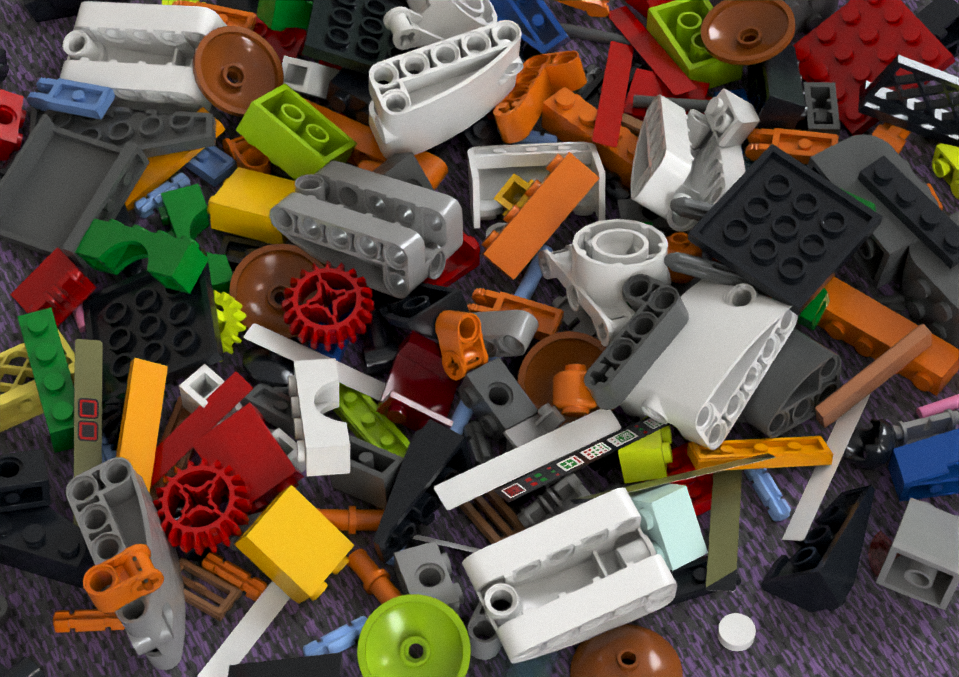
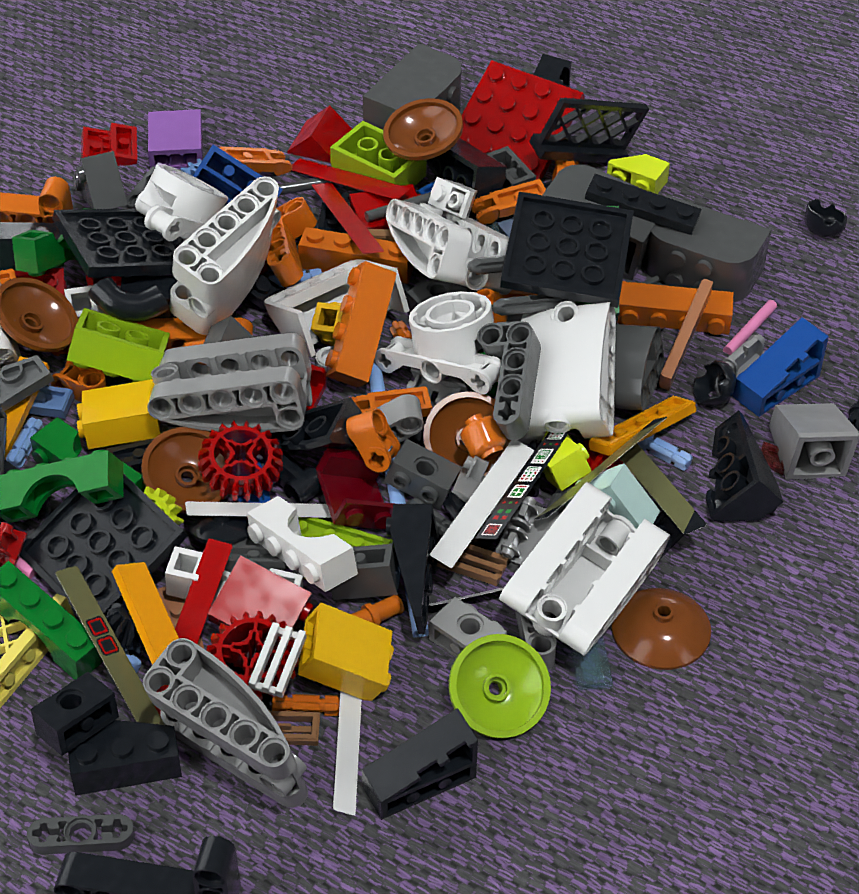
camera: 30 degrees left, 5 degrees down
(85, 620) = (209, 797): orange axle -> none
(123, 577) = (258, 723): orange piece -> none
(185, 538) = (286, 634): none -> white tile
(329, 99) = (128, 305): none -> black cylinder
(336, 640) = (426, 710): light blue axle -> none
(375, 580) = (423, 651): orange pin -> none
(736, 632) = (717, 559): white tile -> none
(823, 474) = (695, 423): white sticker -> none

